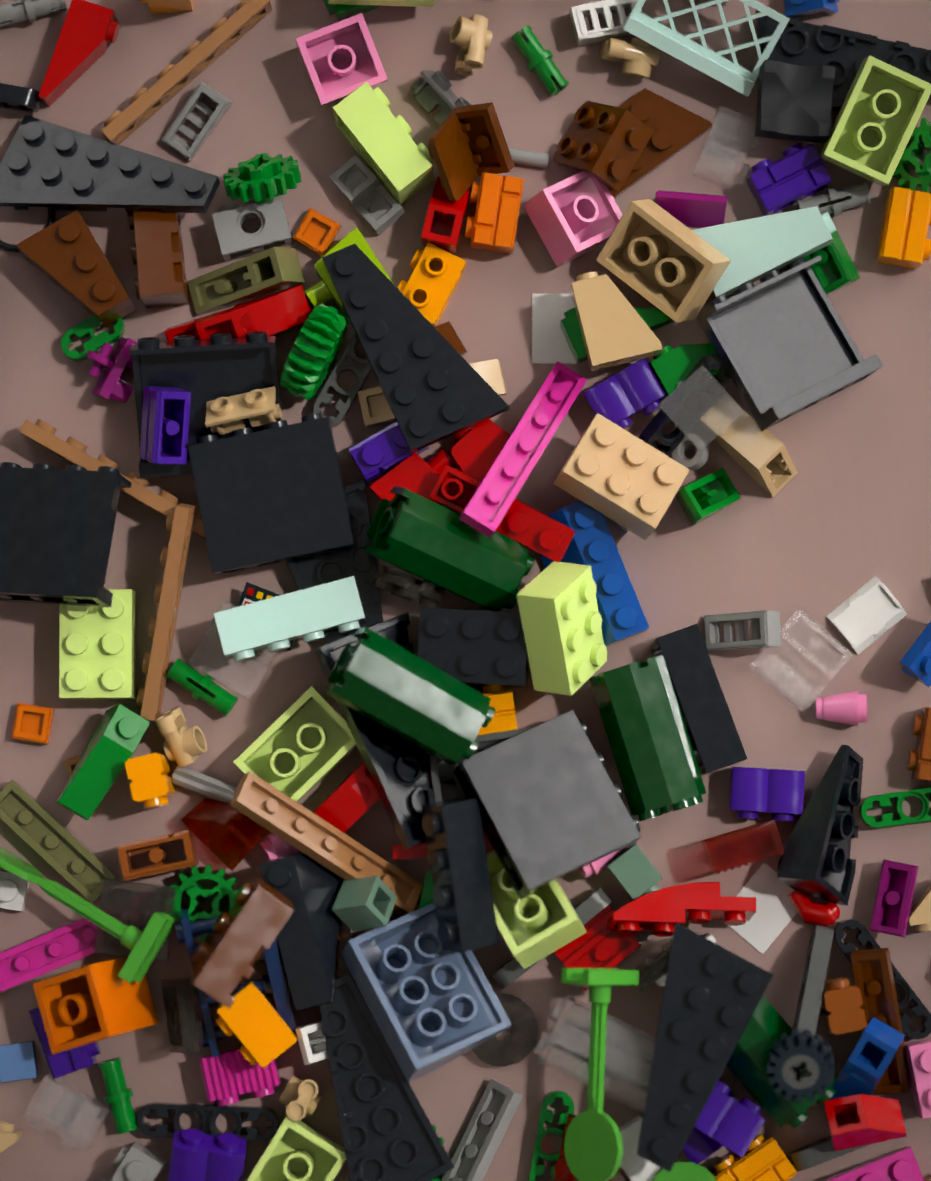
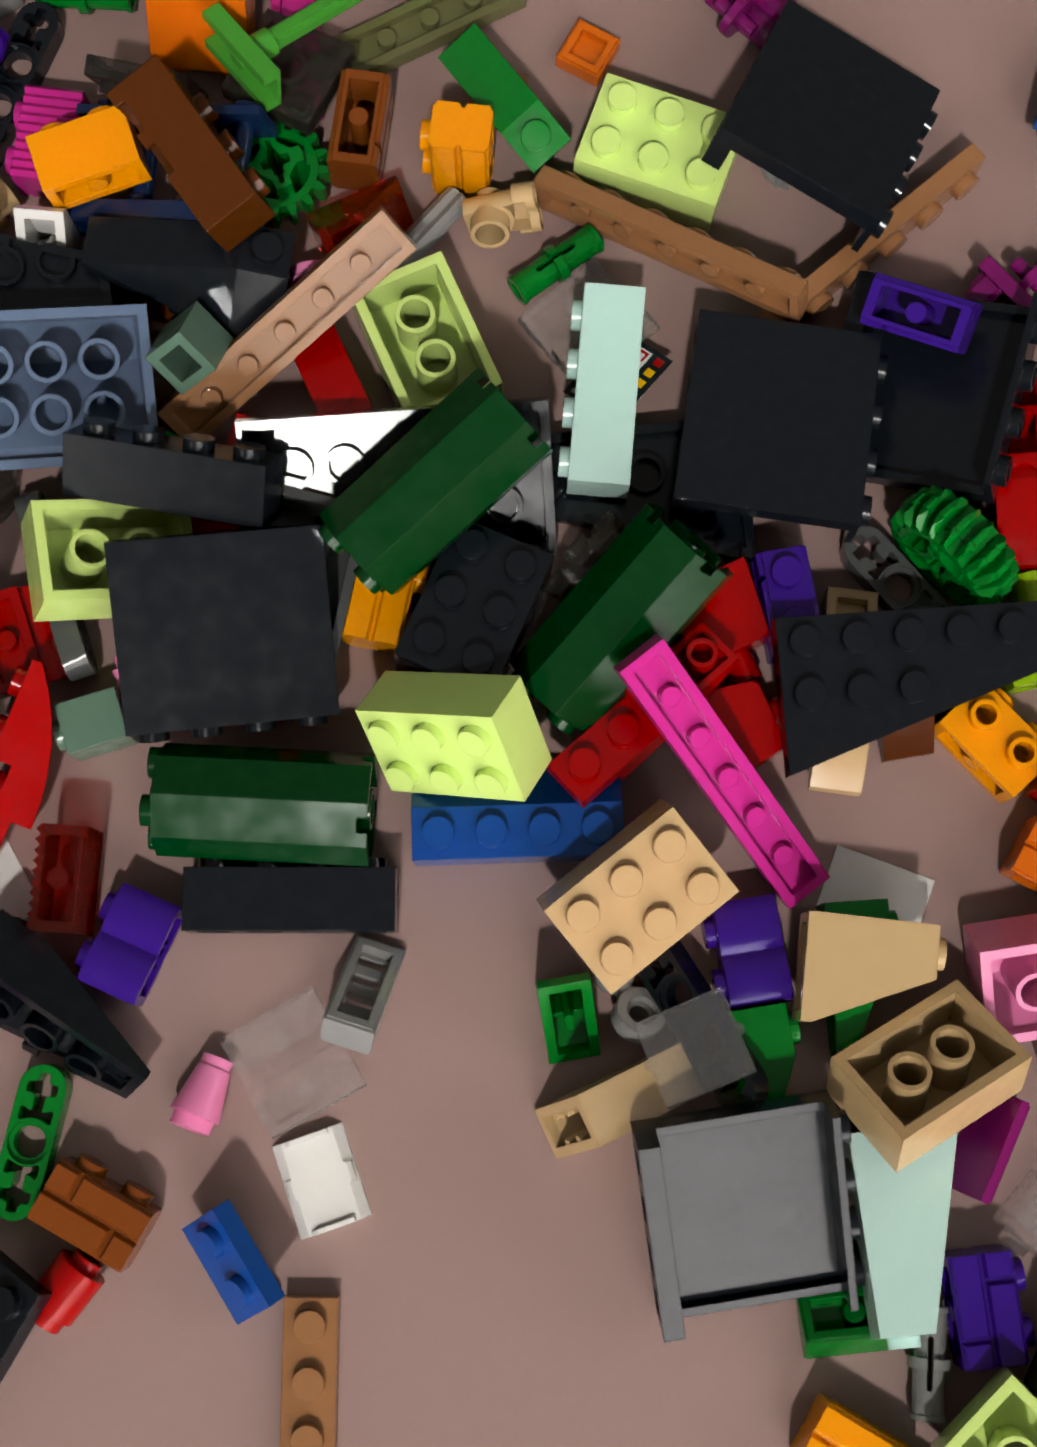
camera: 110 degrees right, 5 degrees down
(228, 413) = (907, 410): tan hinge -> none

